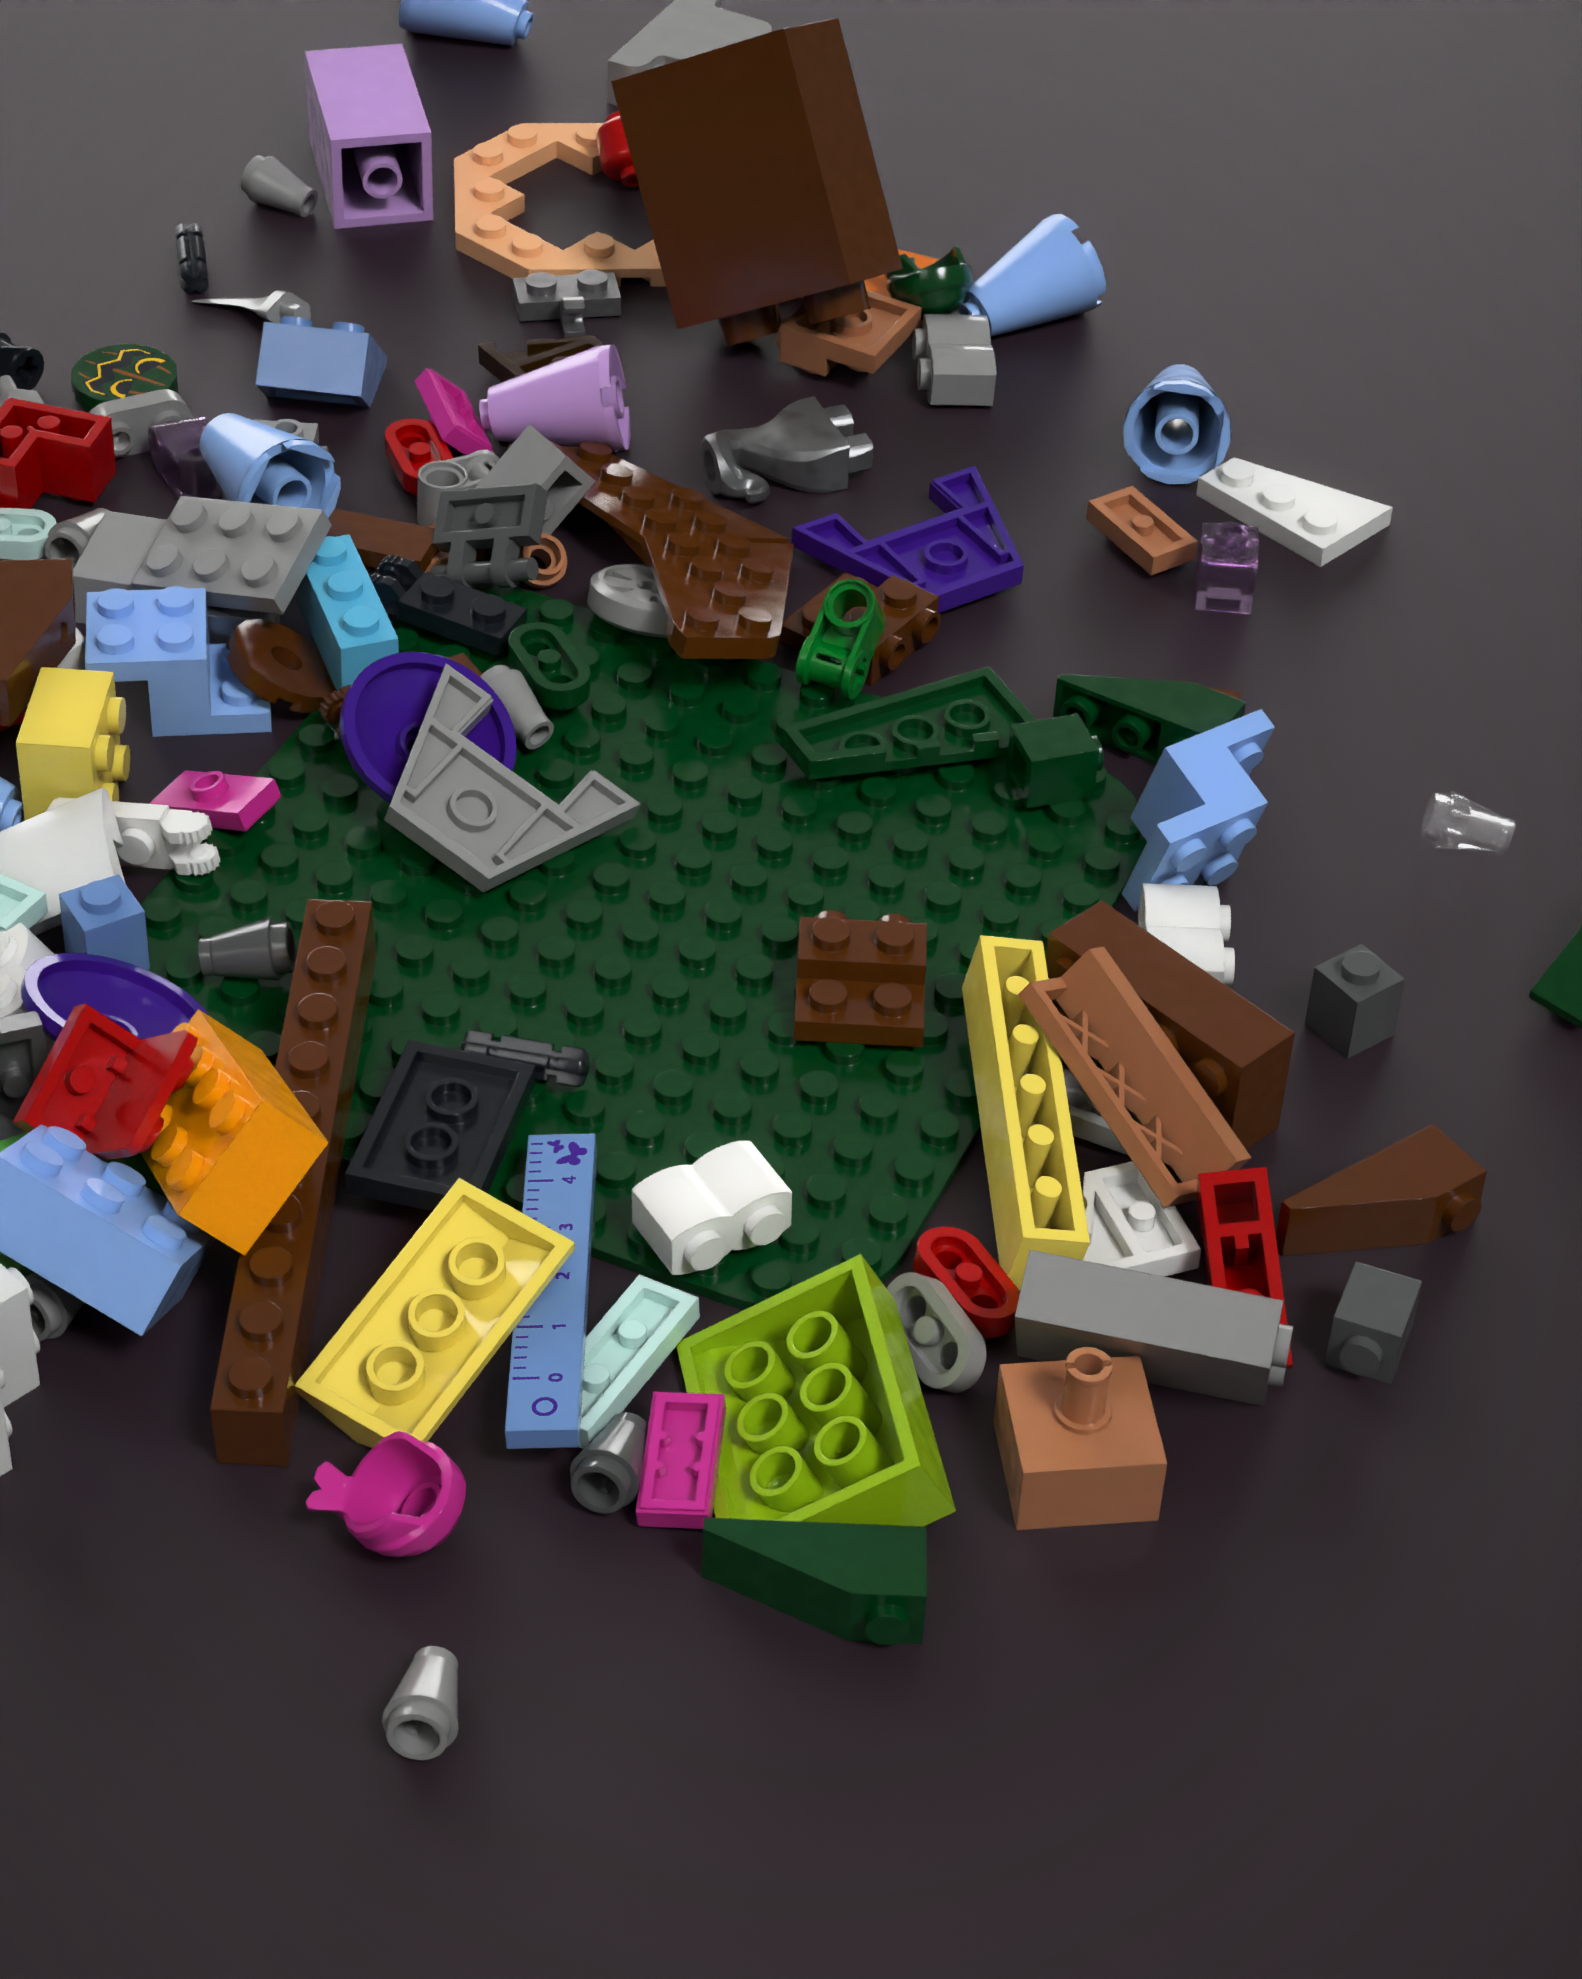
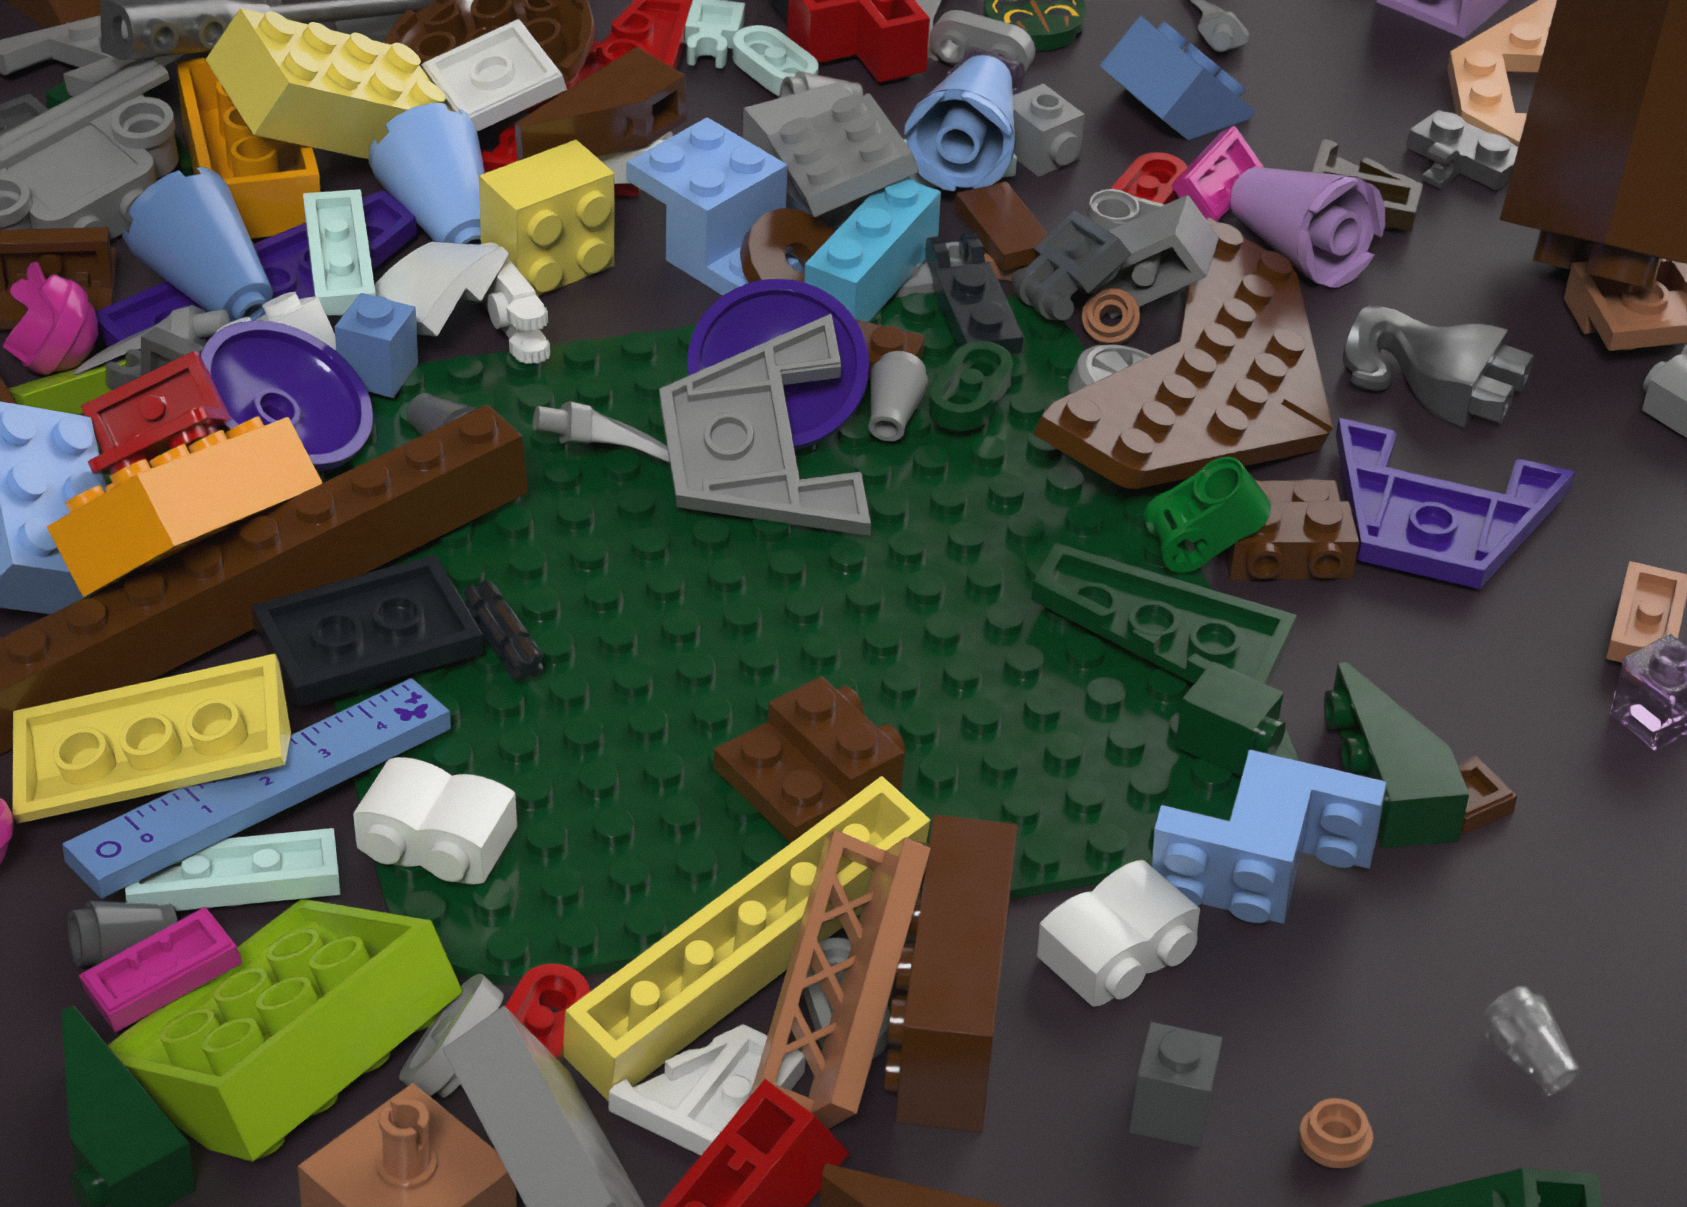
camera: 50 degrees right, 0 degrees up
(227, 799) = (607, 321): dark pink plate -> none
(346, 880) = (581, 425): none -> light grey bar
(1456, 961) = (1336, 1133): none -> nougat plate

